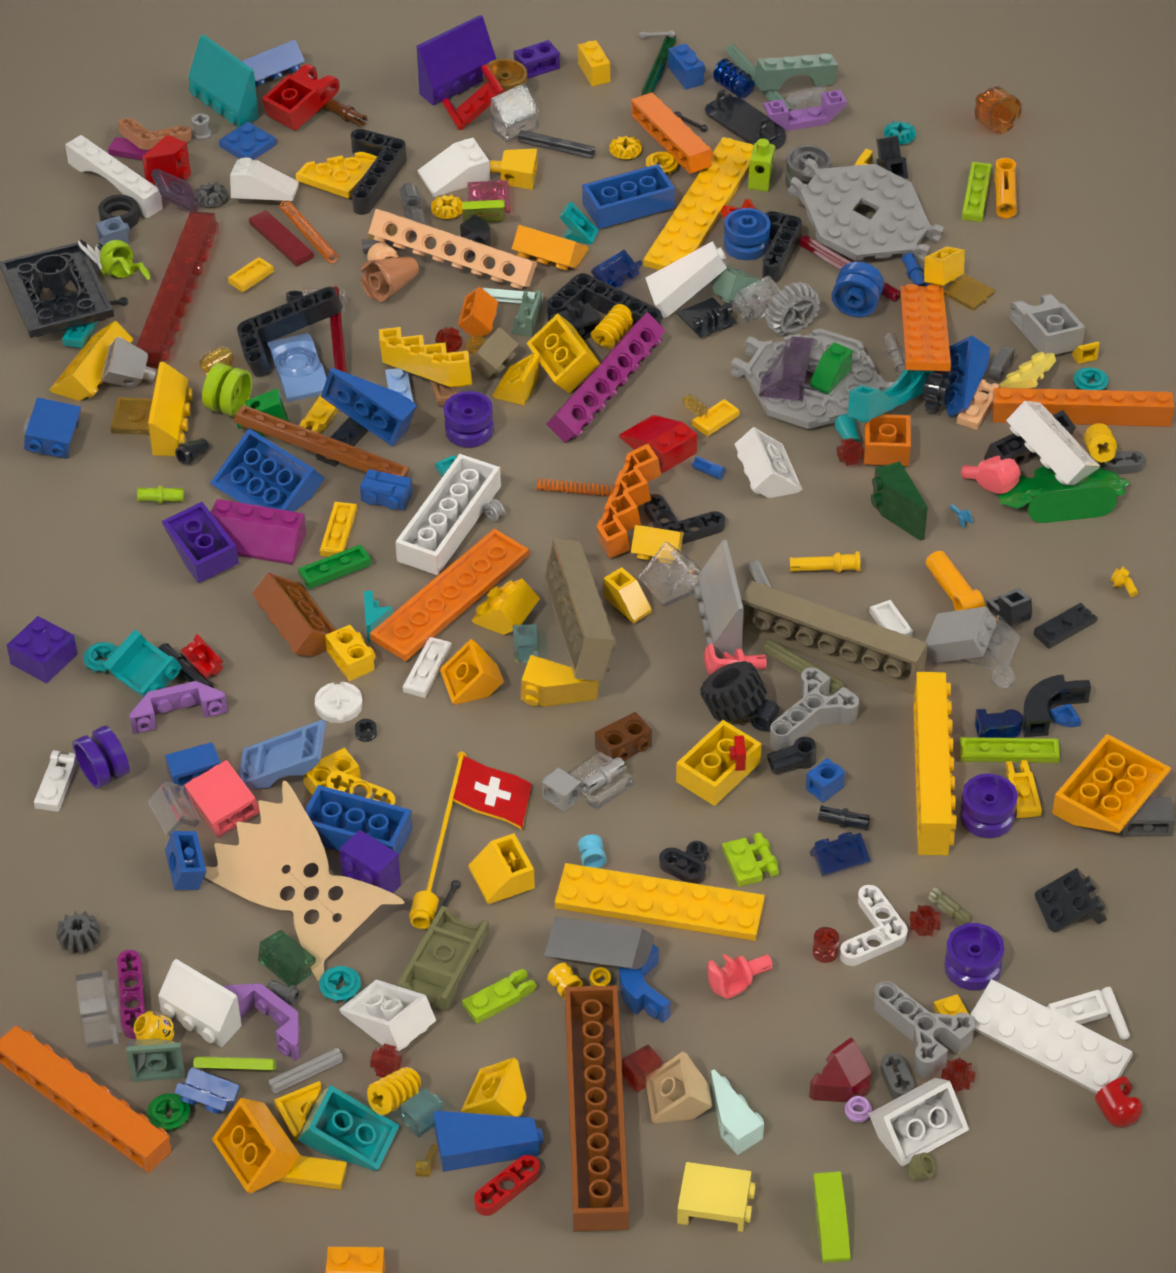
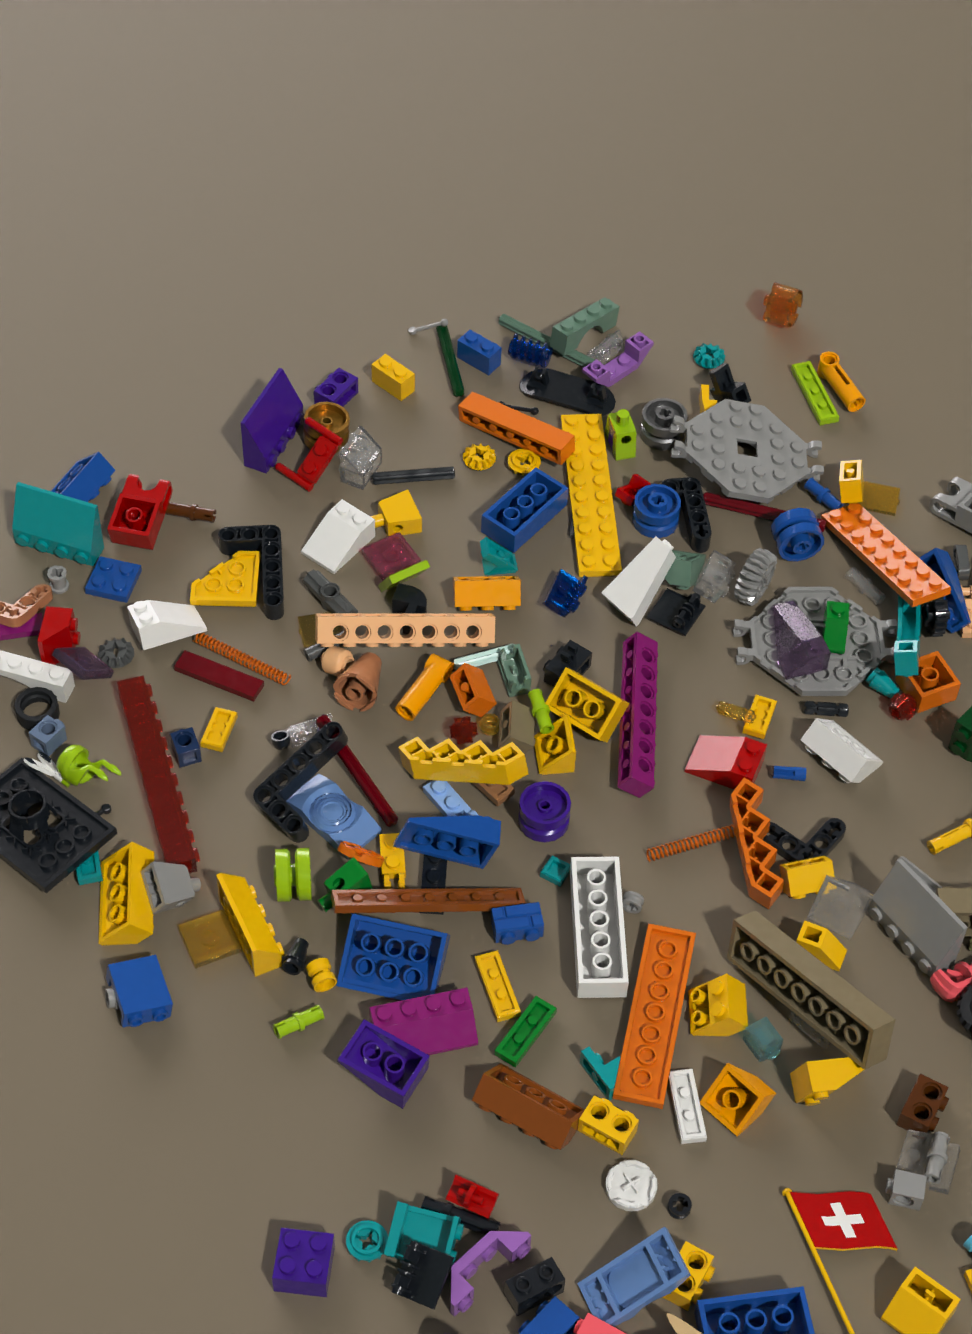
camera: 30 degrees left, 5 degrees up
(123, 690) = (422, 1274): none -> black hinge
(201, 469) = (322, 976): none -> yellow wheel
(203, 729) = (534, 1286): none -> black brick
(214, 277) = (185, 754): none -> dark blue brick
(218, 355) = (251, 841): clear yellow brick -> none
(292, 395) = (360, 854): none -> orange tile
(345, 779) = (738, 1276): yellow beam -> none
(440, 299) = (434, 673): none -> light orange piece
(446, 212) = (360, 588): yellow gear -> none
(520, 344) = (540, 711): none -> lime pin
(600, 296) = (579, 628): black beam -> none
(613, 327) = (605, 656): yellow piece -> none
(782, 432) = (826, 708): none -> black axle

